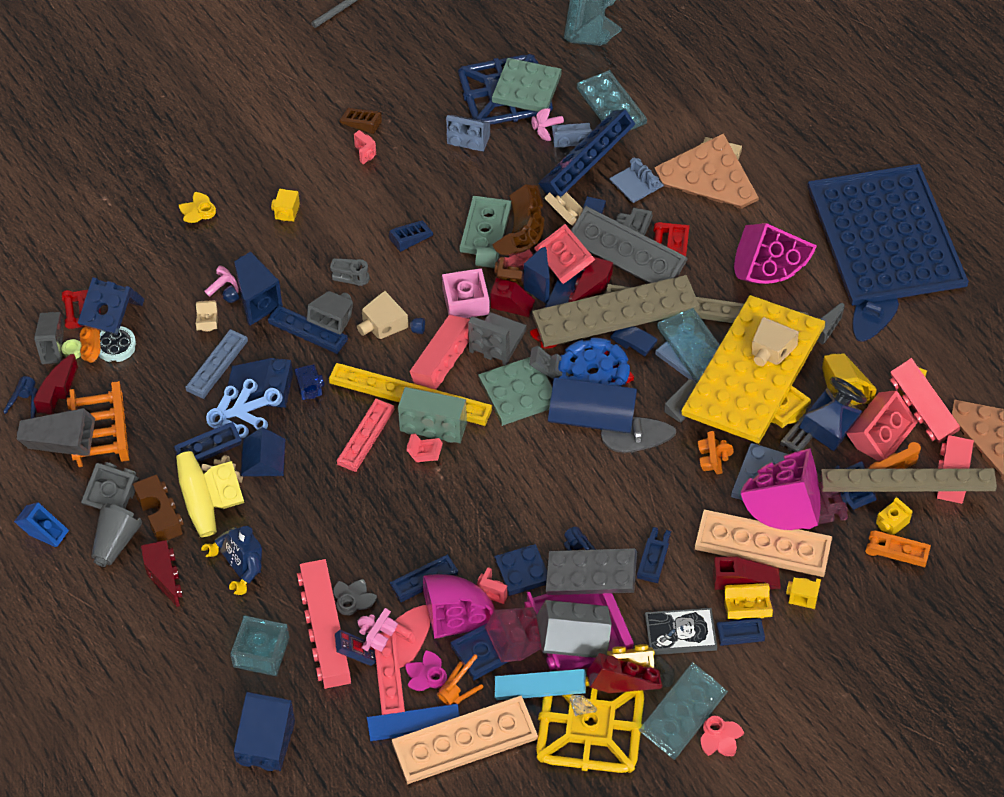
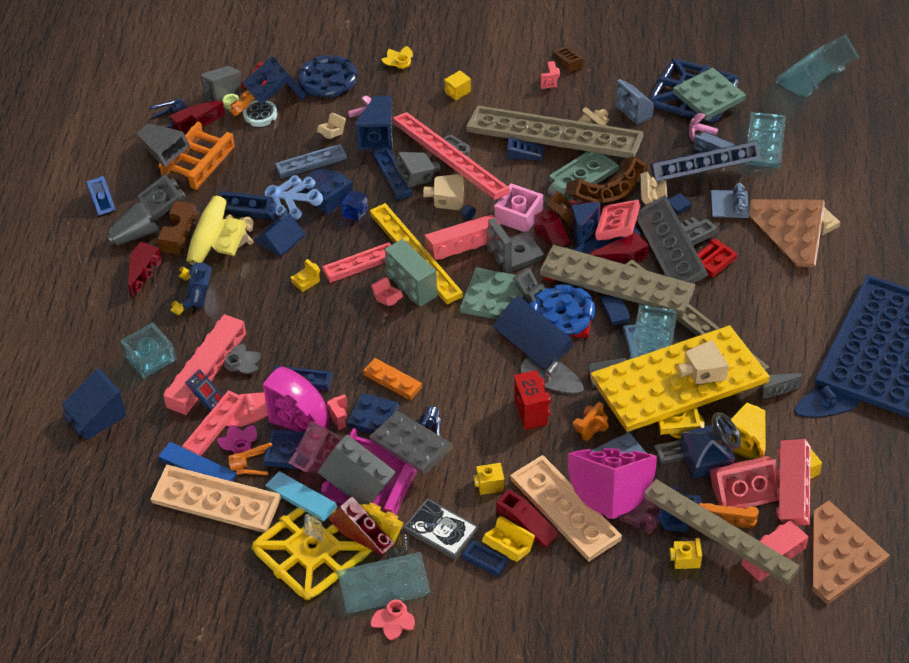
camera: 40 degrees right, 5 degrees down
(146, 258) = (319, 68): none -> dark blue plate
(331, 479) = (307, 277): none -> yellow bracket
(360, 279) = (451, 156): none -> coral plate
(374, 638) = (226, 384): bright pink hips -> none
(424, 201) = (555, 131): none -> dark tan plate
(451, 167) = (597, 117): none -> tan hips
(506, 525) = (392, 379): none -> orange plate
(652, 466) = (531, 399): none -> red brick
(654, 557) = (466, 467): dark blue hinge -> none
(680, 559) = (489, 478): none -> yellow brick
(770, 254) = (777, 308): dark pink brick -> none
(803, 592) = (559, 561): yellow brick -> none
(898, 548) = (668, 579): orange plate -> none

